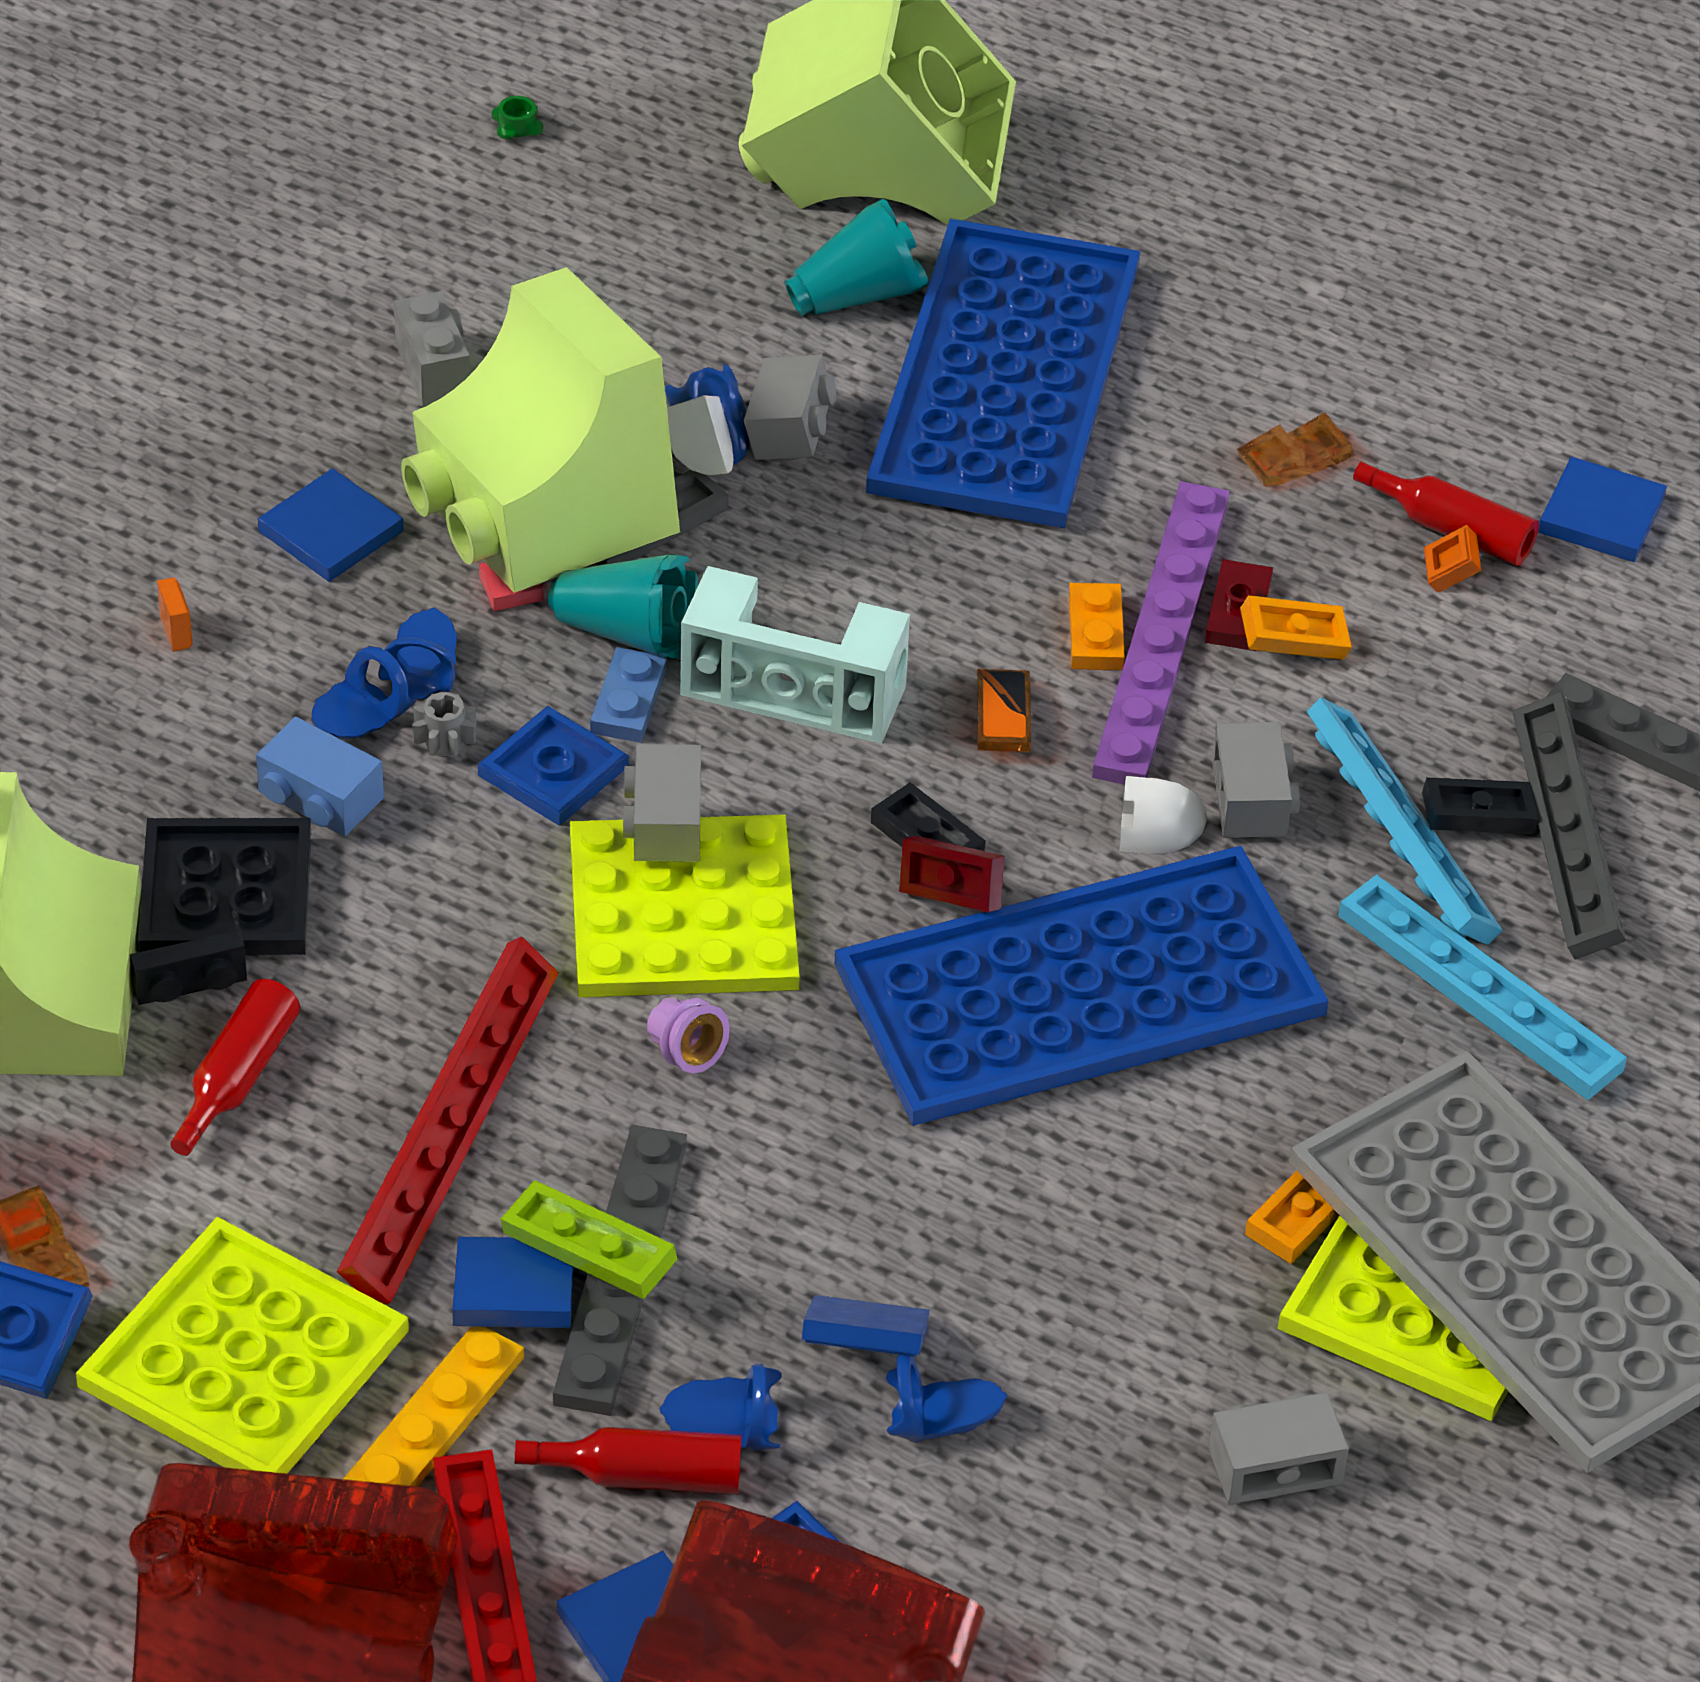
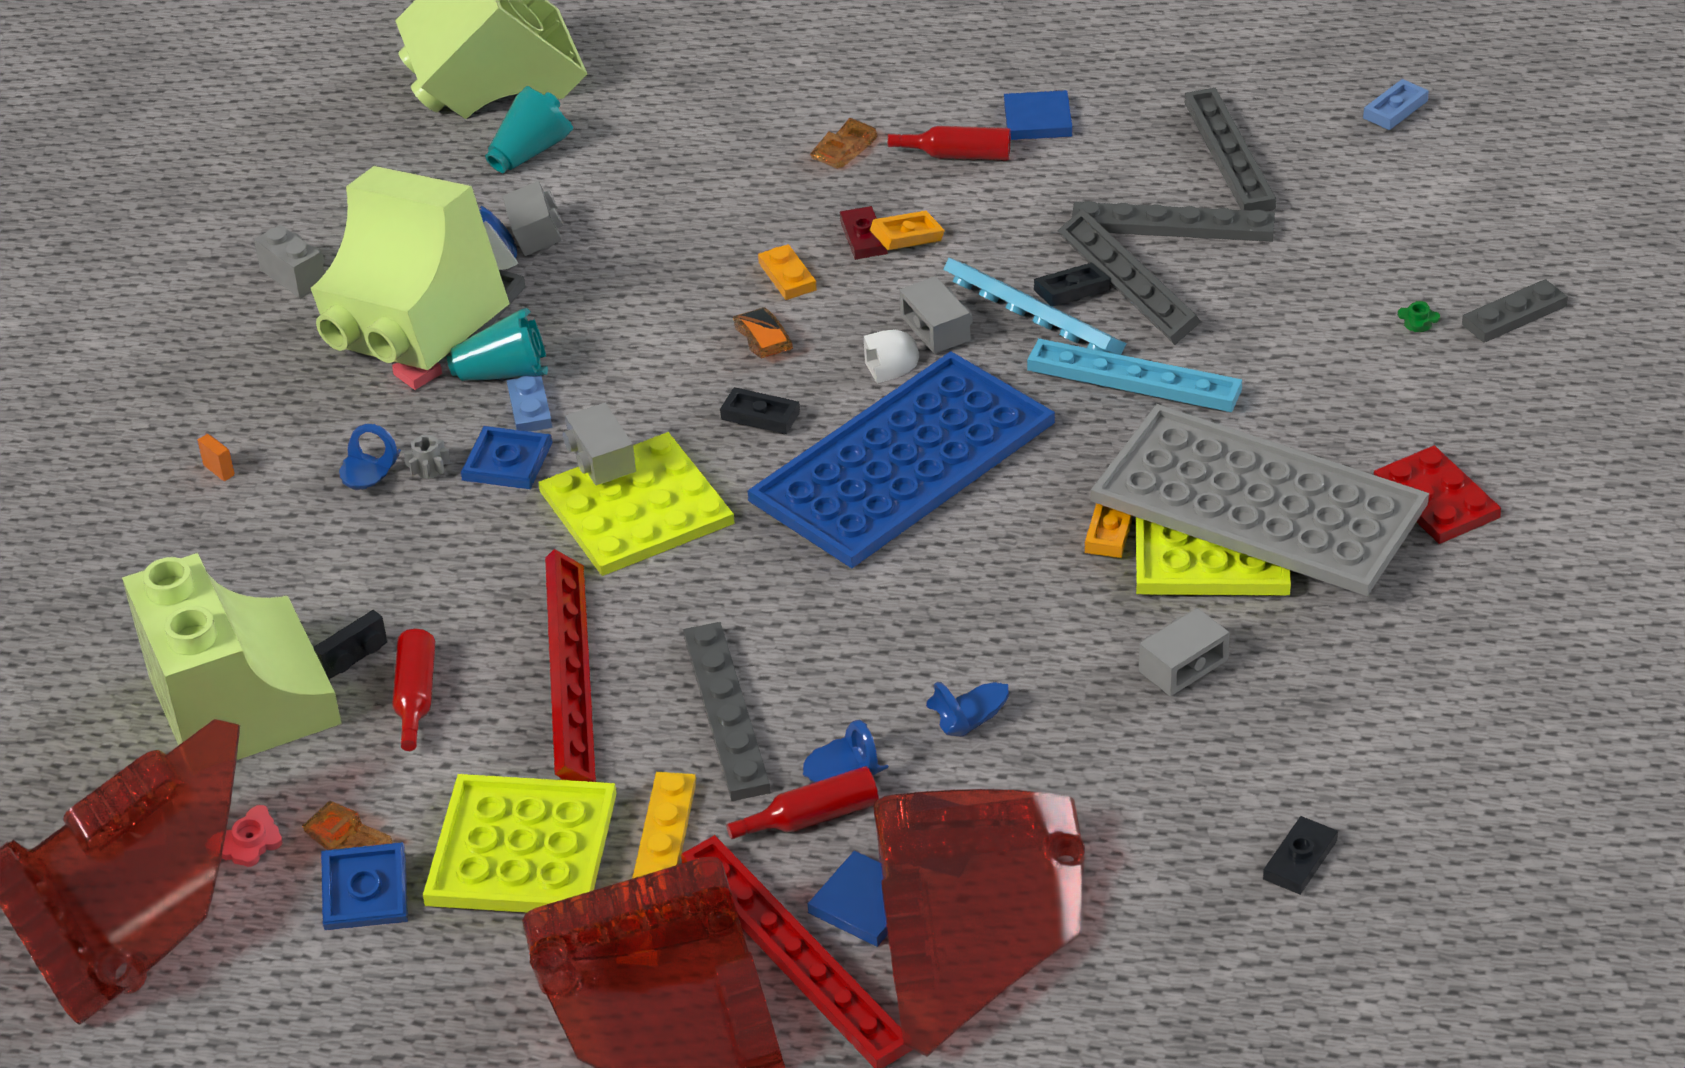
camera: 20 degrees left, 5 degrees down
(226, 878) = (343, 587): black plate -> none
(320, 776) = (368, 510): medium blue brick -> none
(330, 524) = (283, 378): blue tile -> none
(425, 653) = (394, 419): blue piece -> none
(510, 1285) = (667, 740): blue tile -> none
(517, 117) = (261, 125): green plate -> none
(589, 1239) = (703, 695): lime plate -> none
(689, 1032) = (687, 565): lavender piece -> none
(834, 687) = (661, 347): light aqua plate -> none
(865, 1325) = (900, 679): blue tile -> none
(951, 873) = (792, 424): dark red plate -> none
(1004, 373) = (648, 161): blue plate -> none
(1161, 634) = (828, 263): medium lavender plate -> none
(1452, 559) = (972, 166): orange tile -> none

